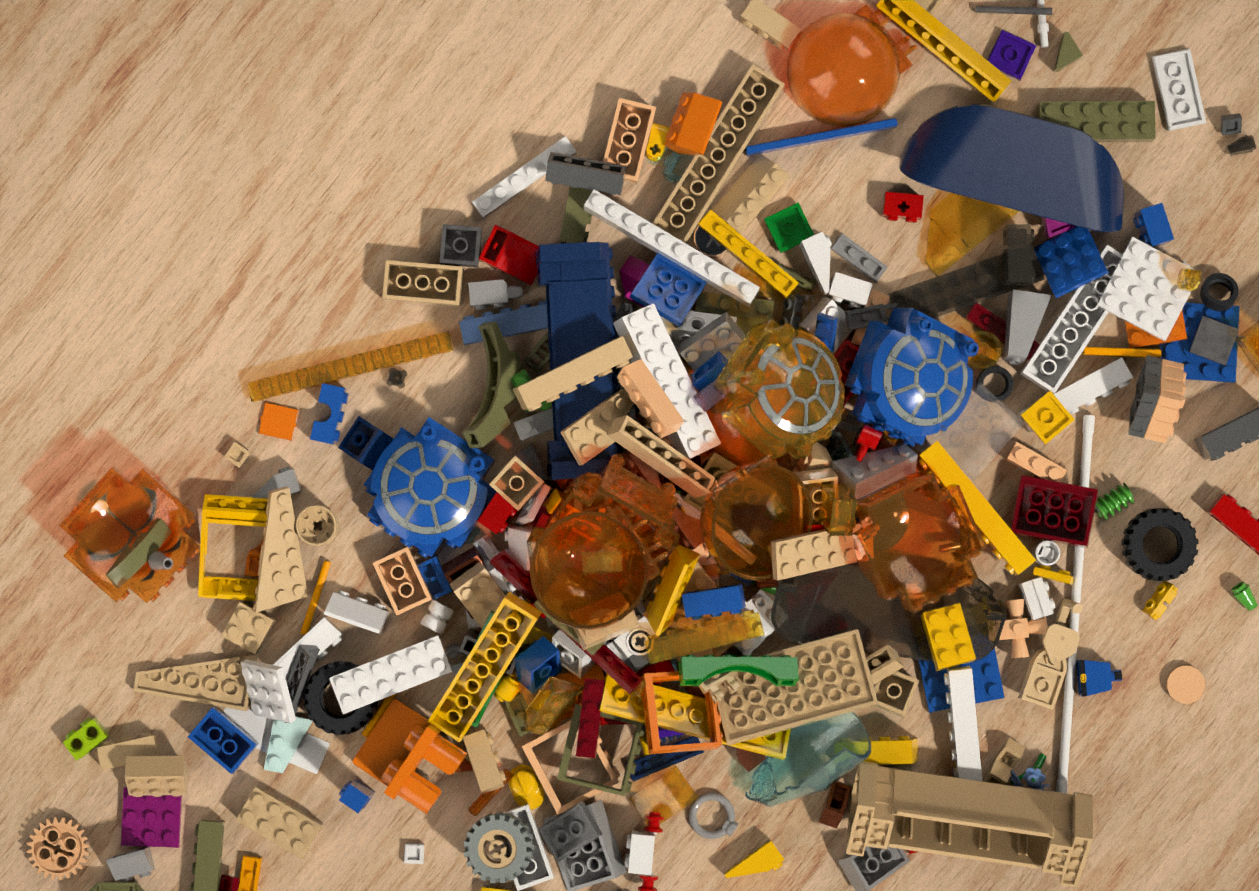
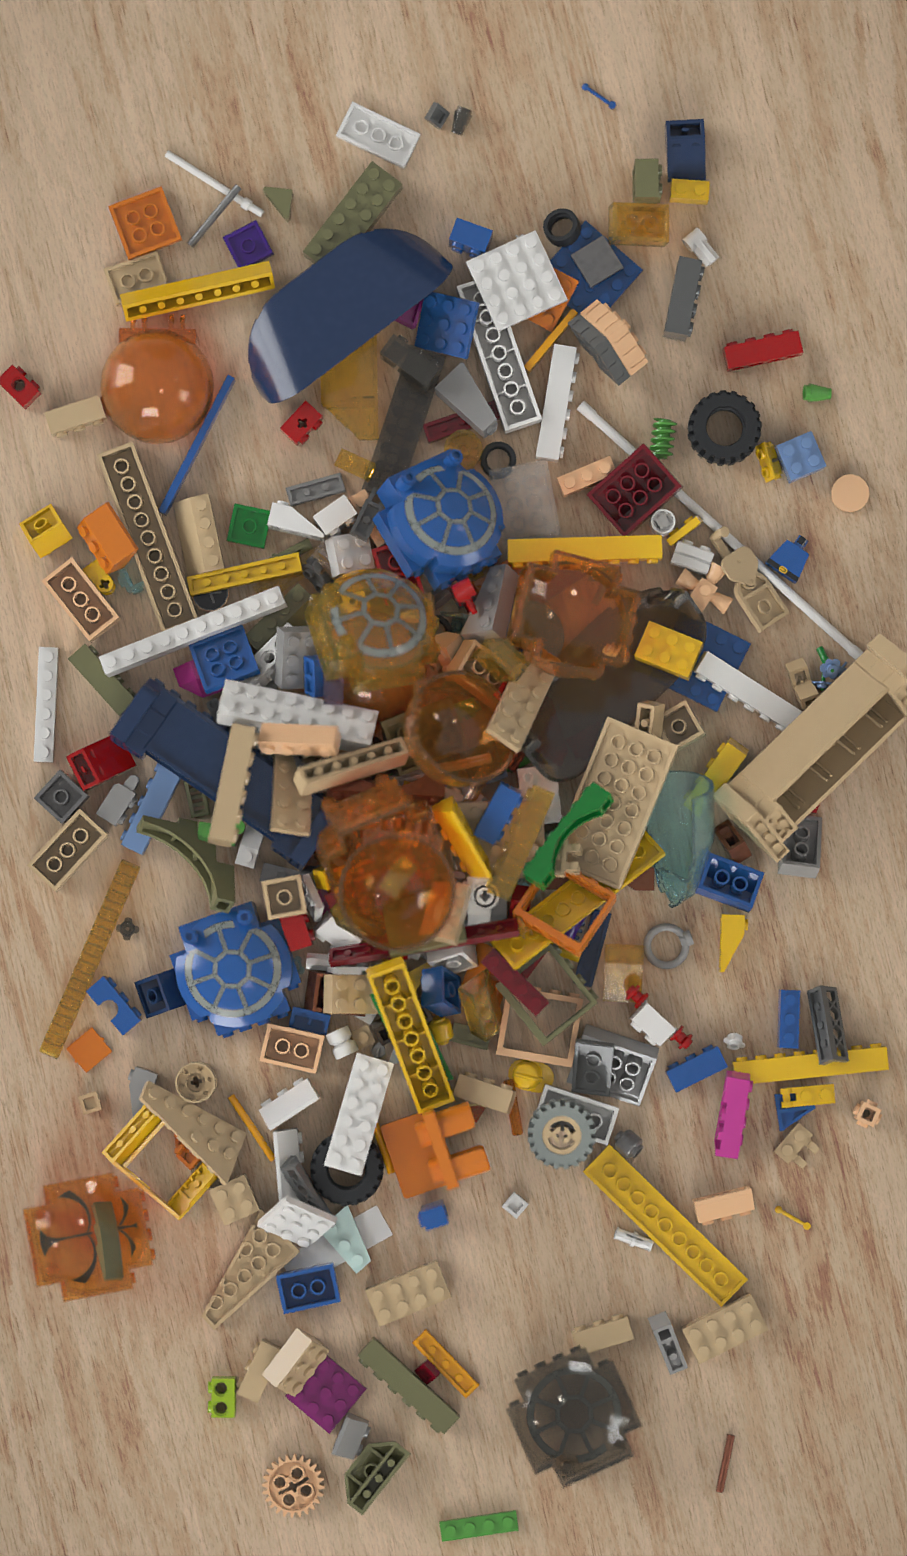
camera: 50 degrees left, 0 degrees up
(159, 561) = (127, 1229): light grey cone -> none
(454, 630) = (363, 1036): none -> tan plate
(585, 173) = (81, 653): dark grey brick -> none
(661, 70) = (45, 531): none -> yellow slope
(801, 828) = (730, 882): none -> blue slope
(826, 330) = (352, 558): blue hinge -> none
(902, 273) = (354, 464): none -> clear yellow plate
(1047, 417) = (556, 438): yellow plate -> none
(1183, 622) = (800, 457): none -> medium blue brick
(1188, 279) = (533, 243): clear yellow rock -> none

